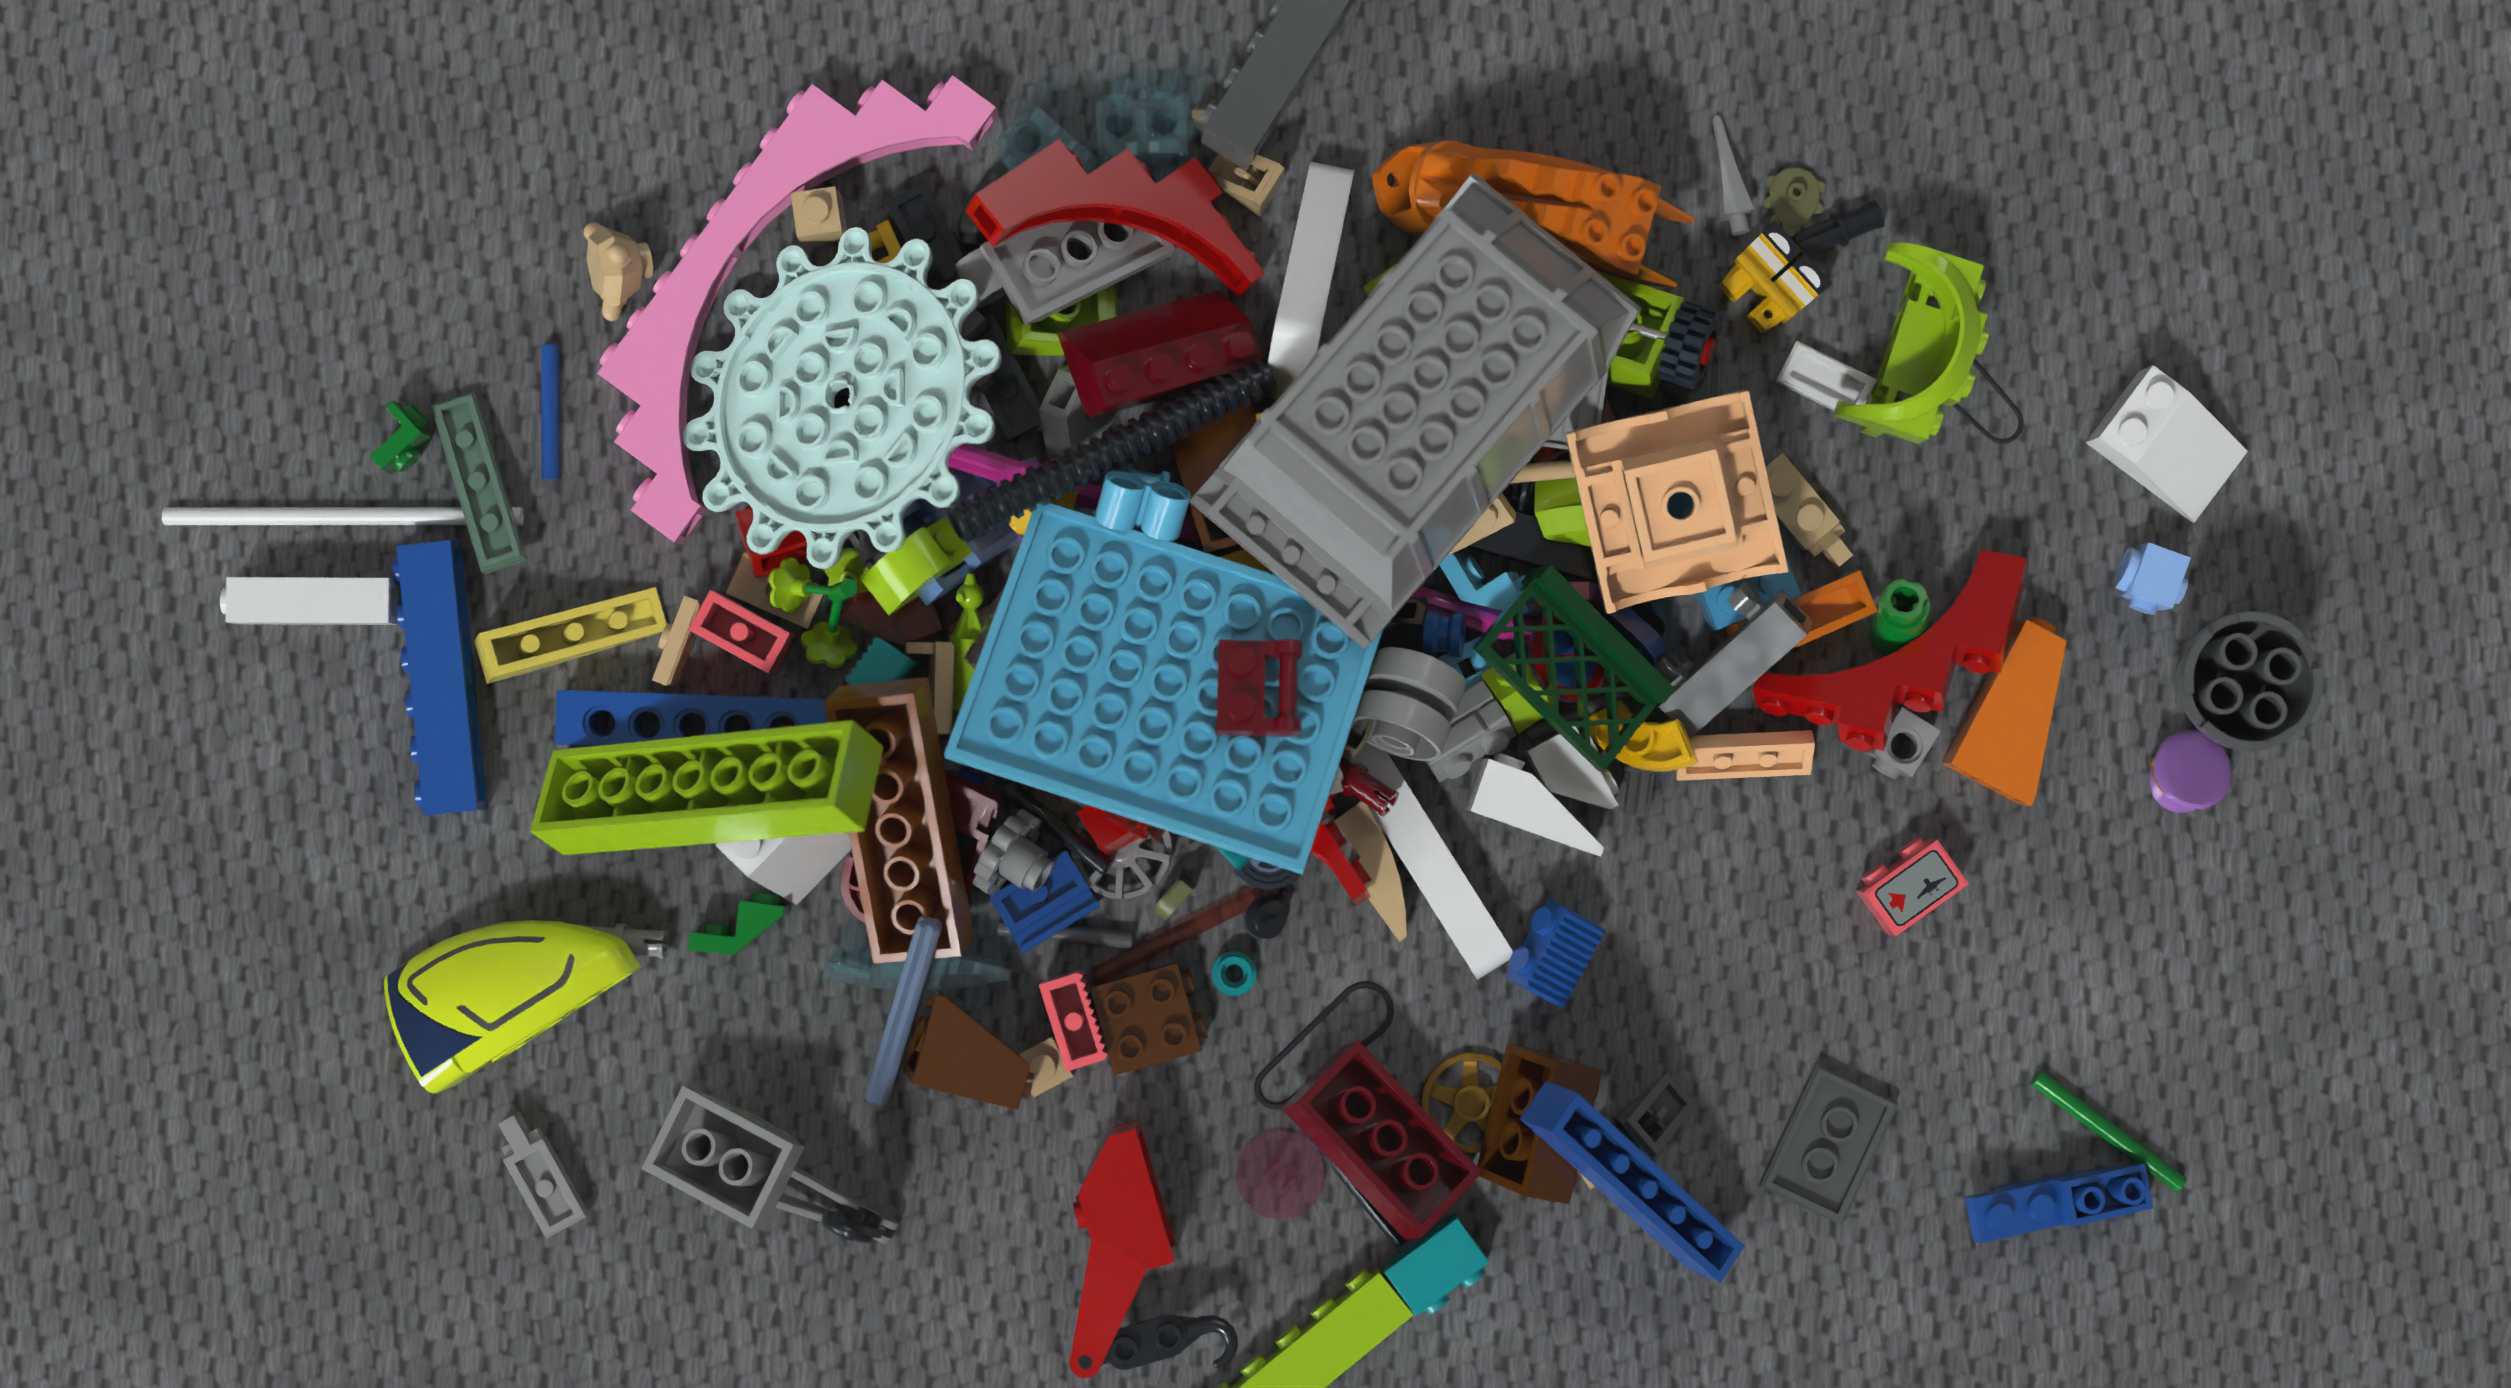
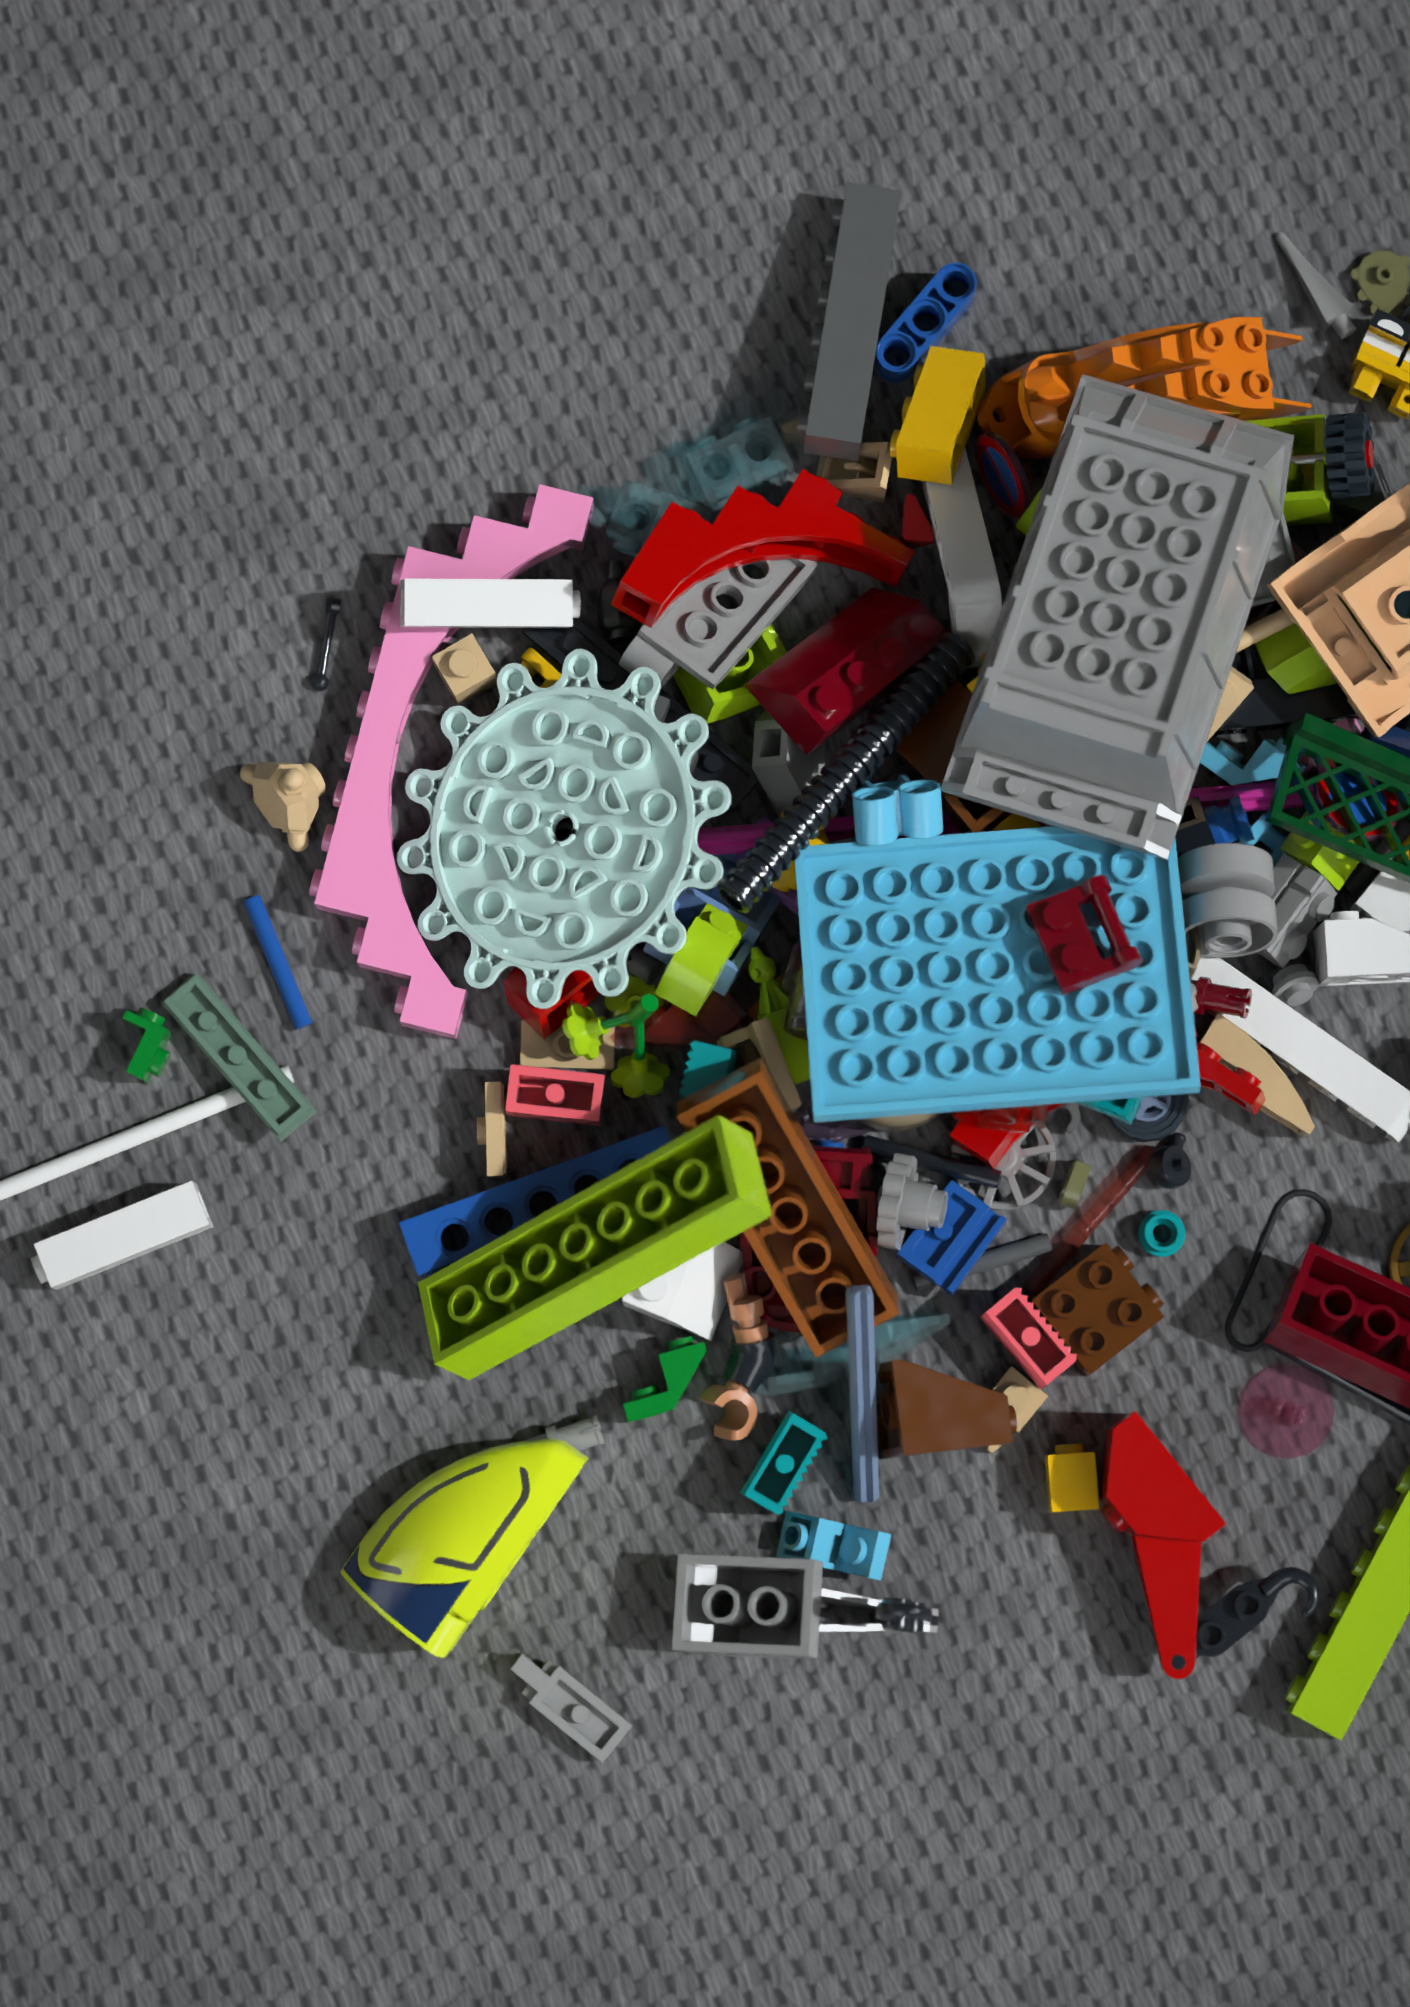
camera: 25 degrees left, 5 degrees down
(440, 677) = (278, 1259): blue brick -> none
(569, 634) = (384, 1168): light yellow slope -> none
(689, 174) = (320, 681): none -> black hinge
(811, 1043) = (783, 1463): none -> teal brick
(818, 941) = (748, 1364): none -> nougat piece
(829, 1129) = (835, 1544): none -> medium azure slope
(858, 165) = (488, 603): none -> white brick
(1061, 1159) = (1071, 1479): none -> yellow brick
(1274, 252) = (915, 527): none -> red slope
(1337, 158) = (939, 415): none -> yellow brick
(1375, 50) = (932, 302): none -> blue beam
(1375, 235) = (1004, 474): none -> piece
(1444, 801) = (1294, 984): none -> light grey plate

